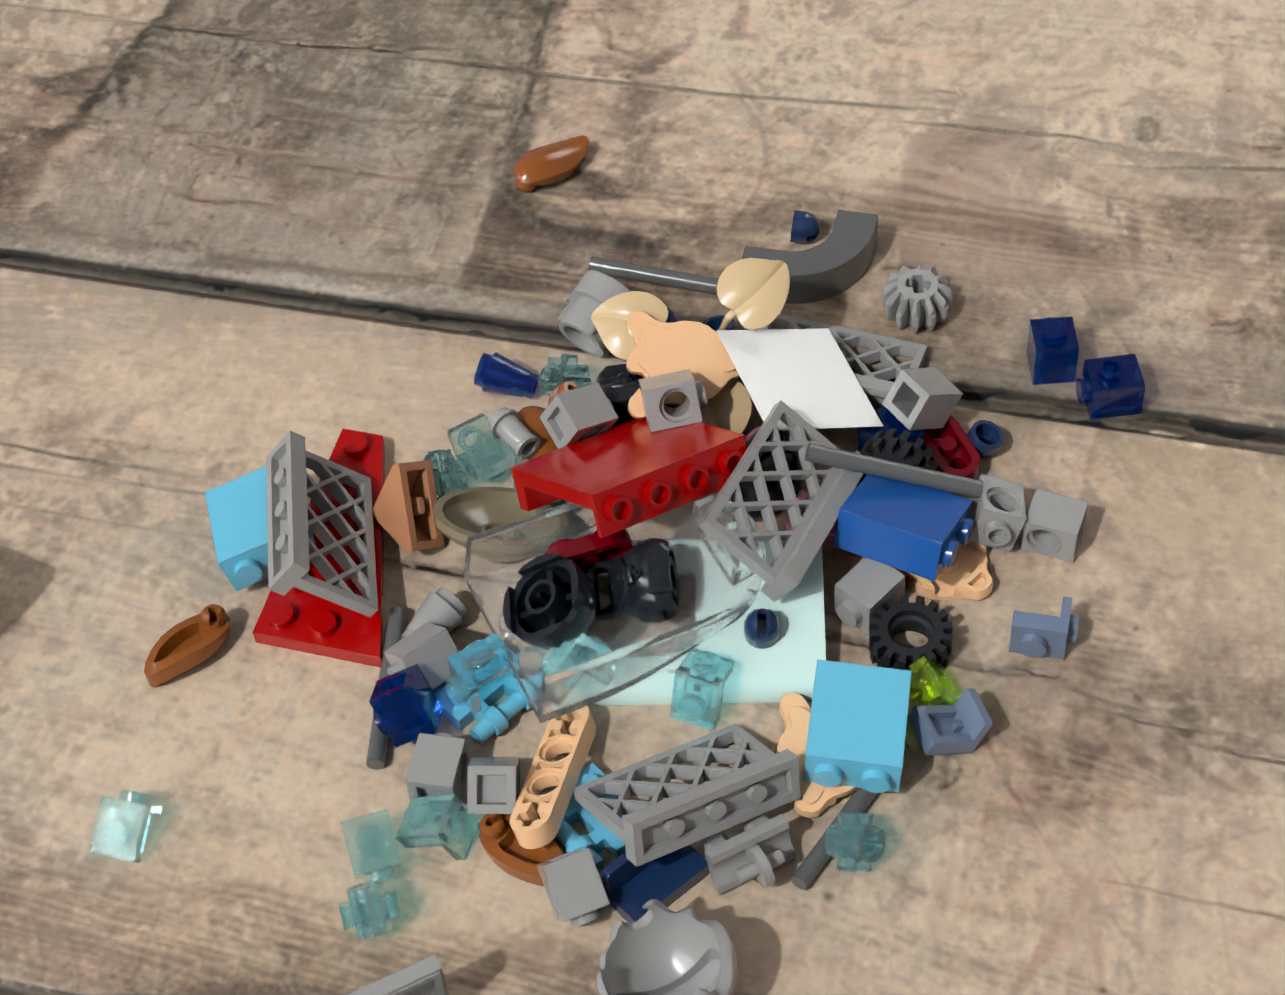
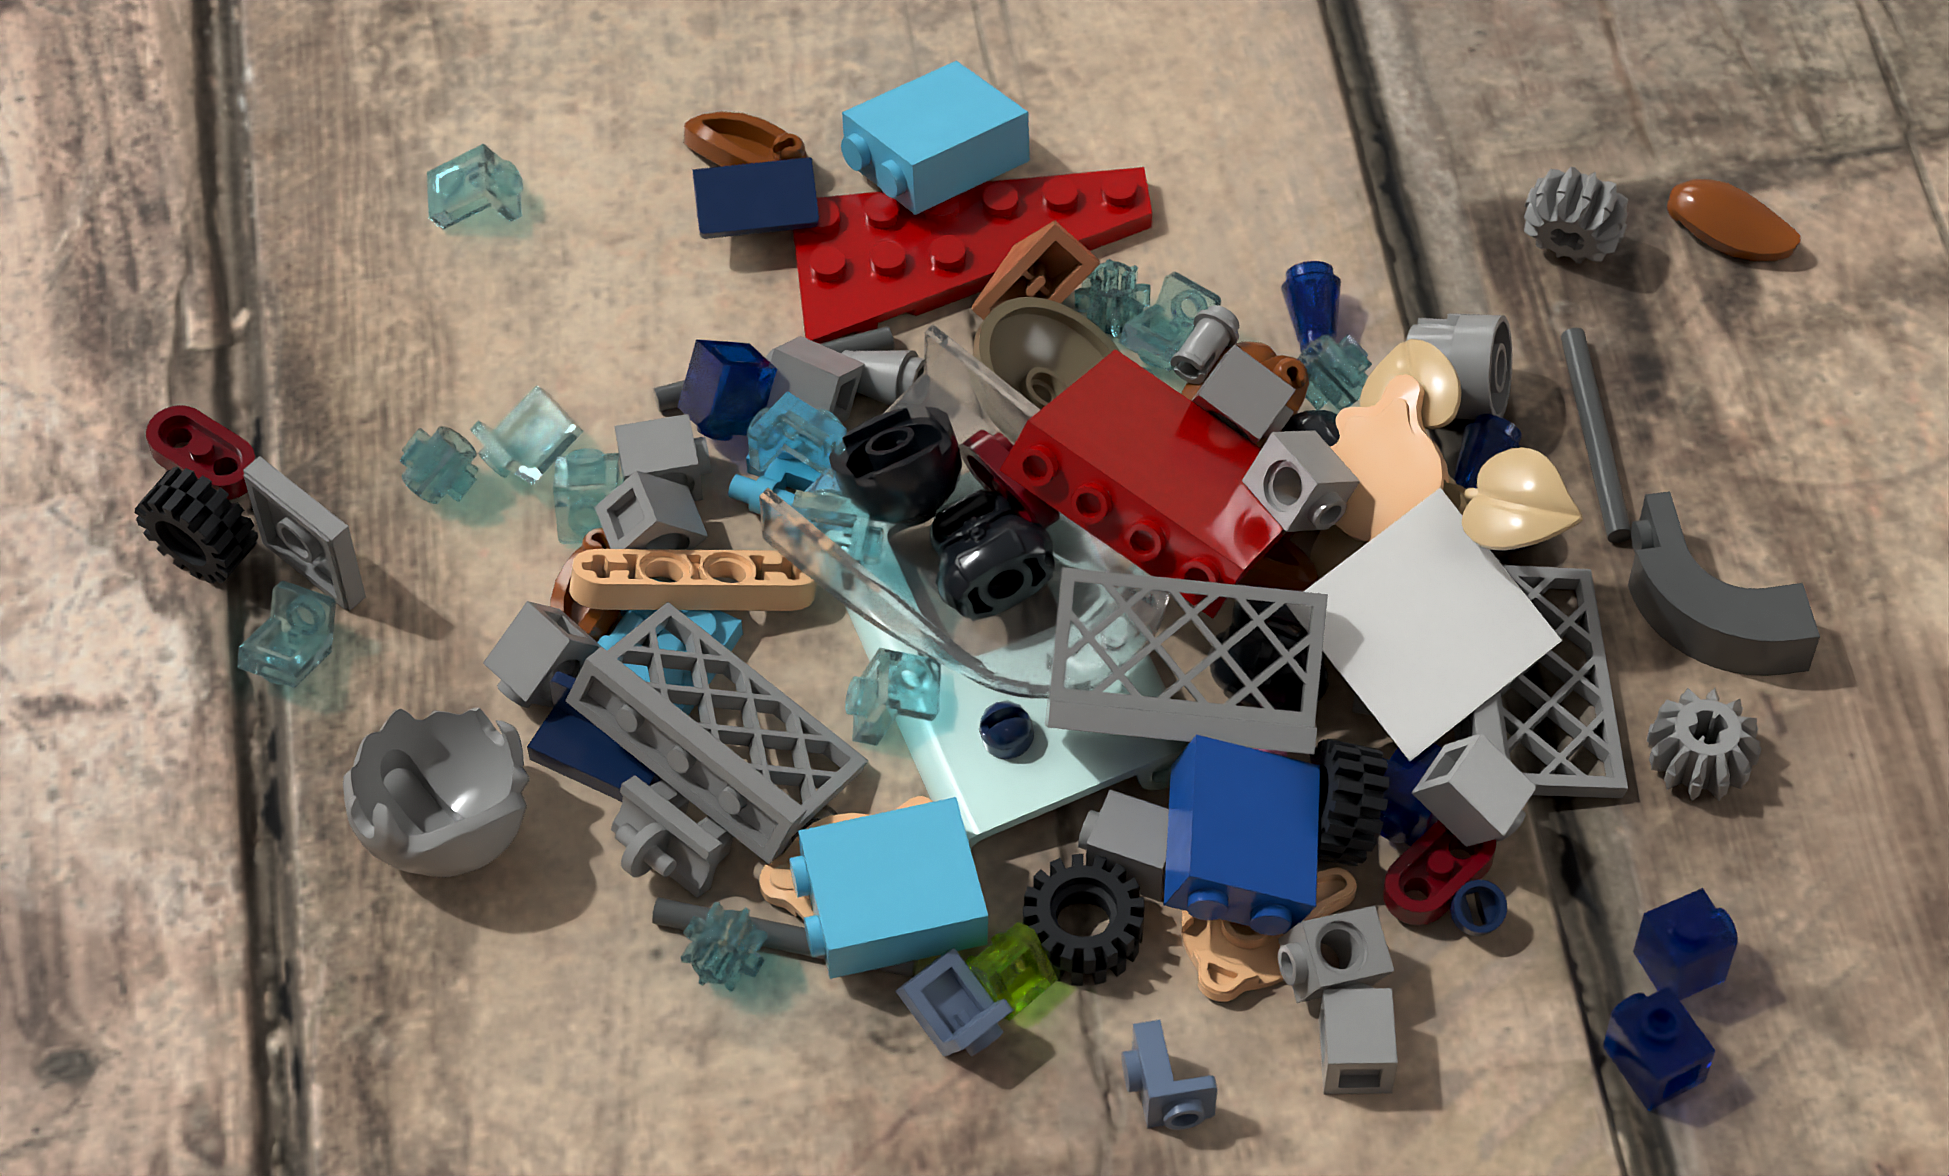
camera: 65 degrees right, 5 degrees up
(247, 647) = (755, 198): none -> dark blue panel
(291, 518) = (918, 142): light grey fence -> none
(516, 223) = (1575, 215): none -> light grey gear
(804, 227) = (1772, 560): dark blue hinge -> none
(893, 470) = (1303, 784): dark grey bar -> none

